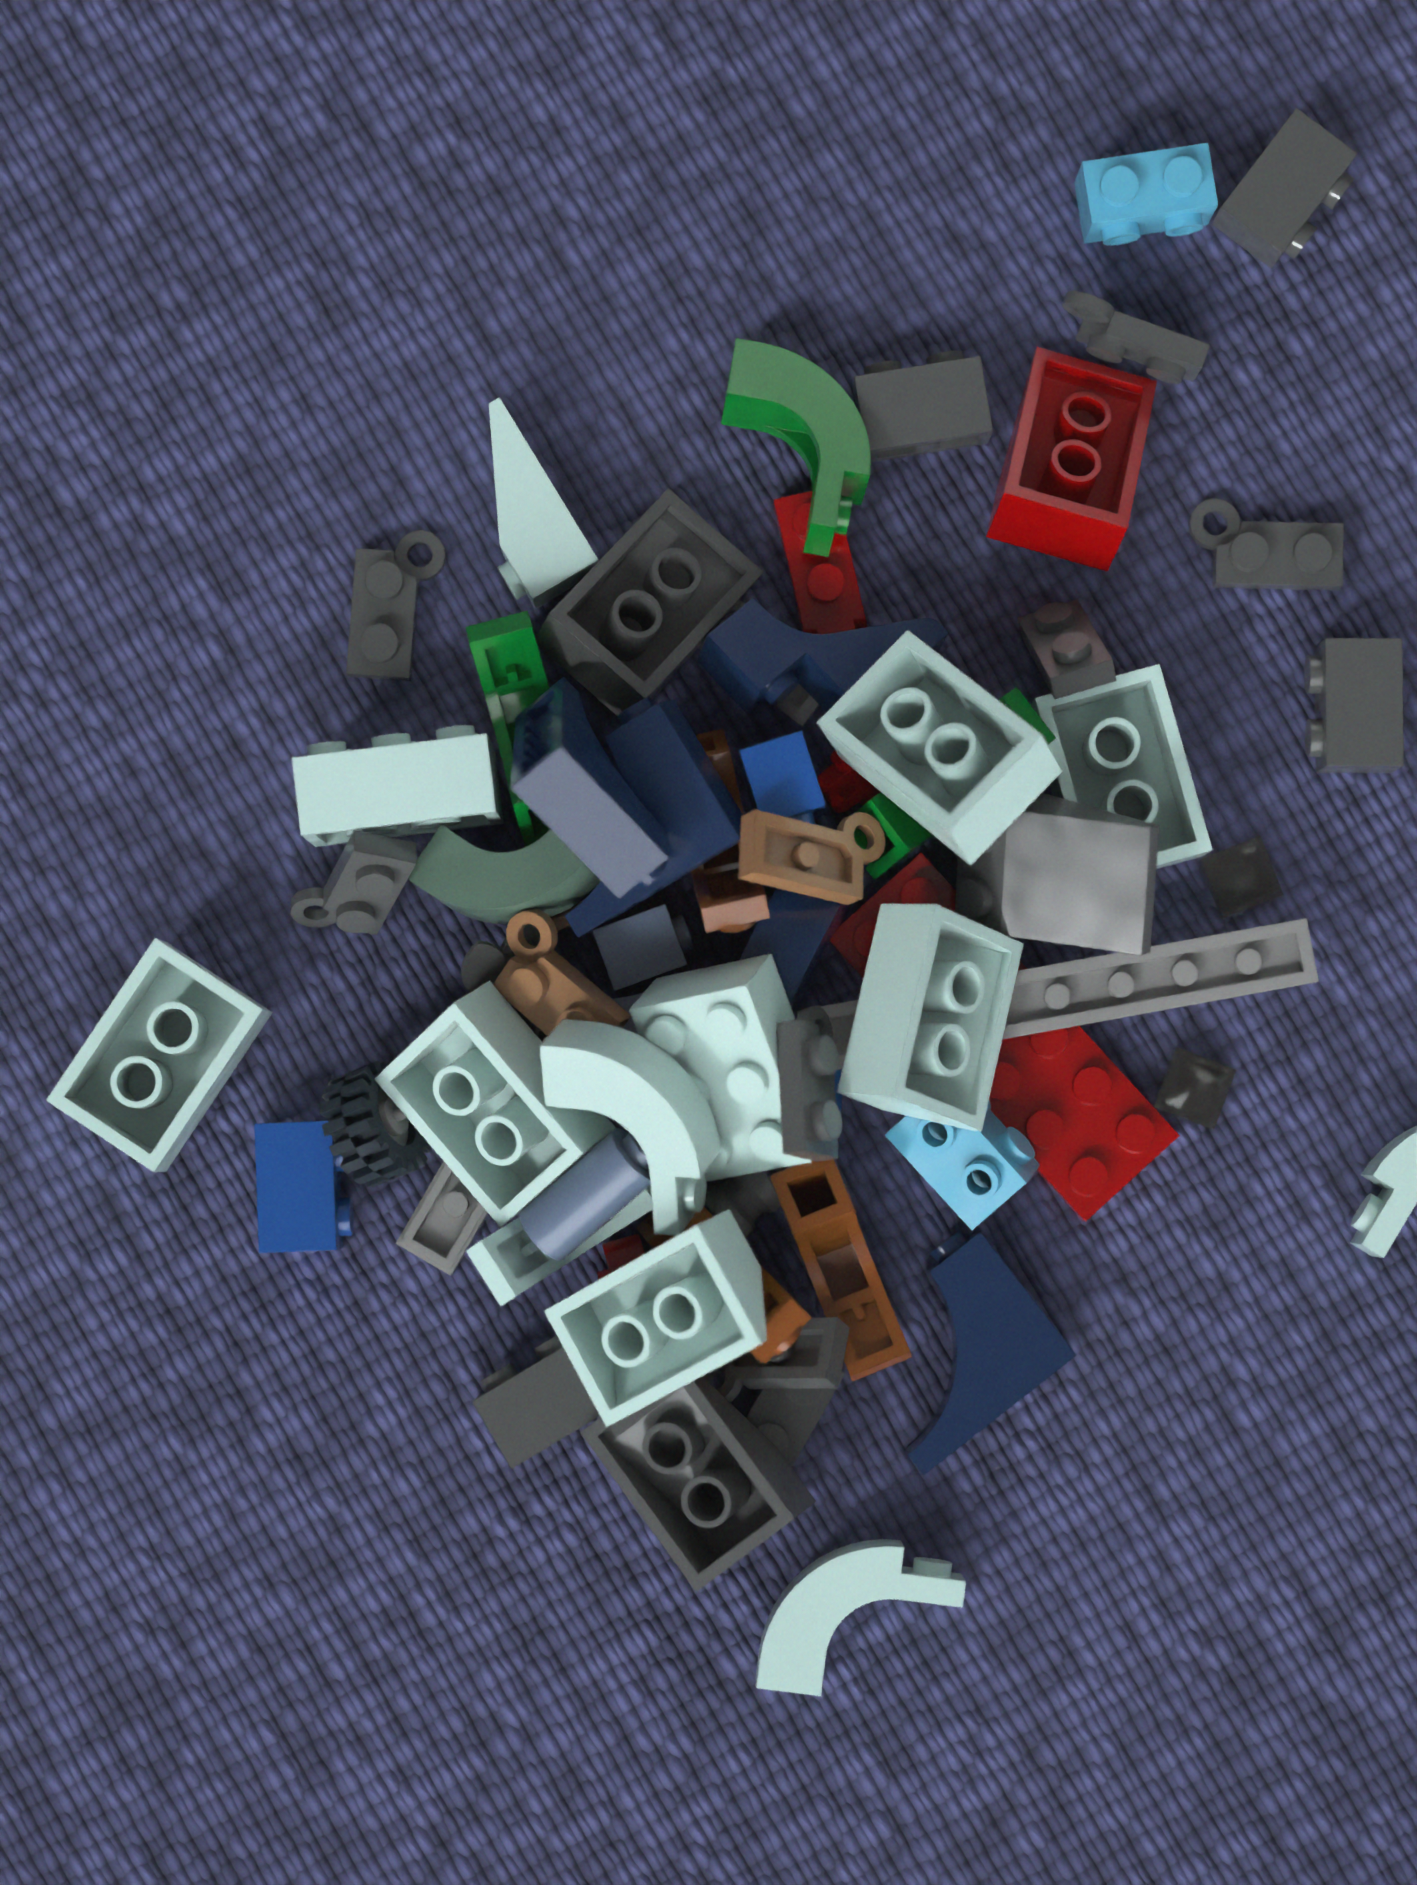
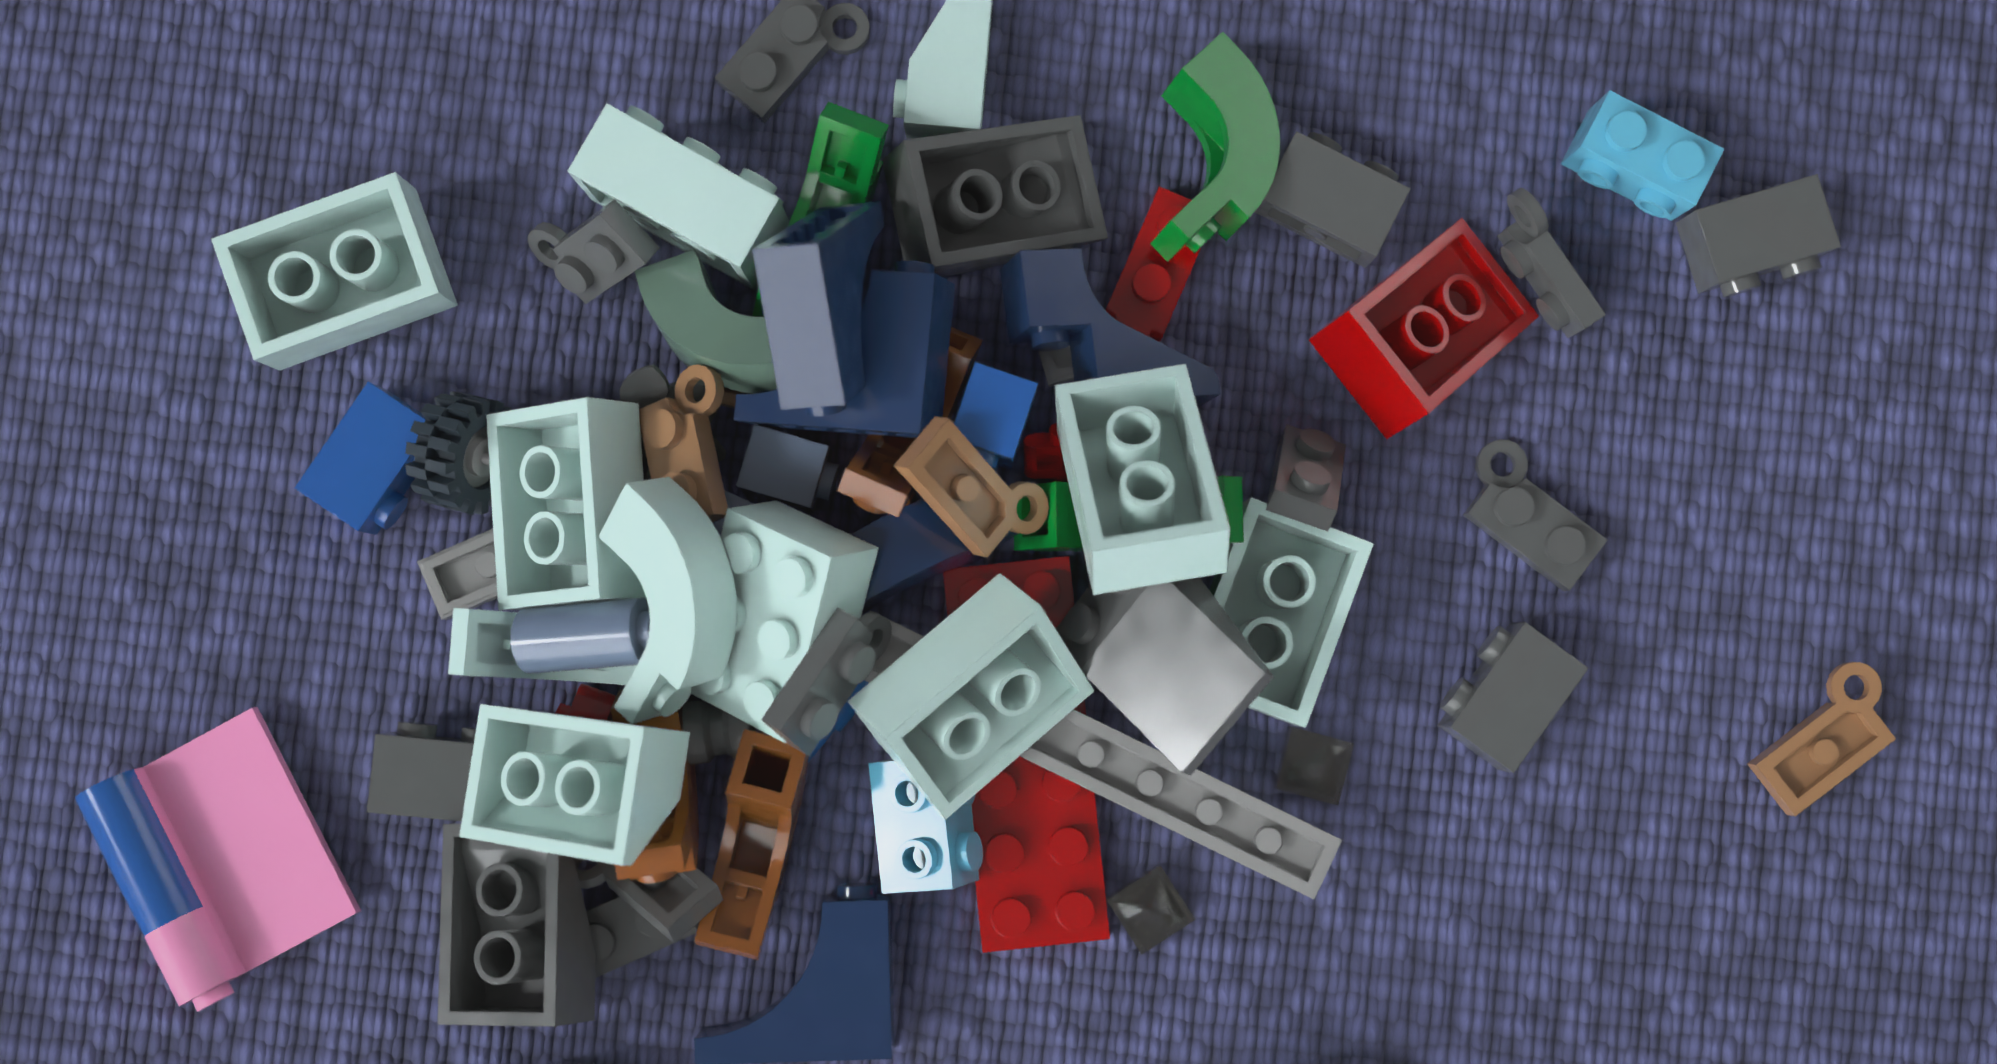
camera: 30 degrees right, 0 degrees up
(413, 1598) = (217, 857): none -> bright pink door

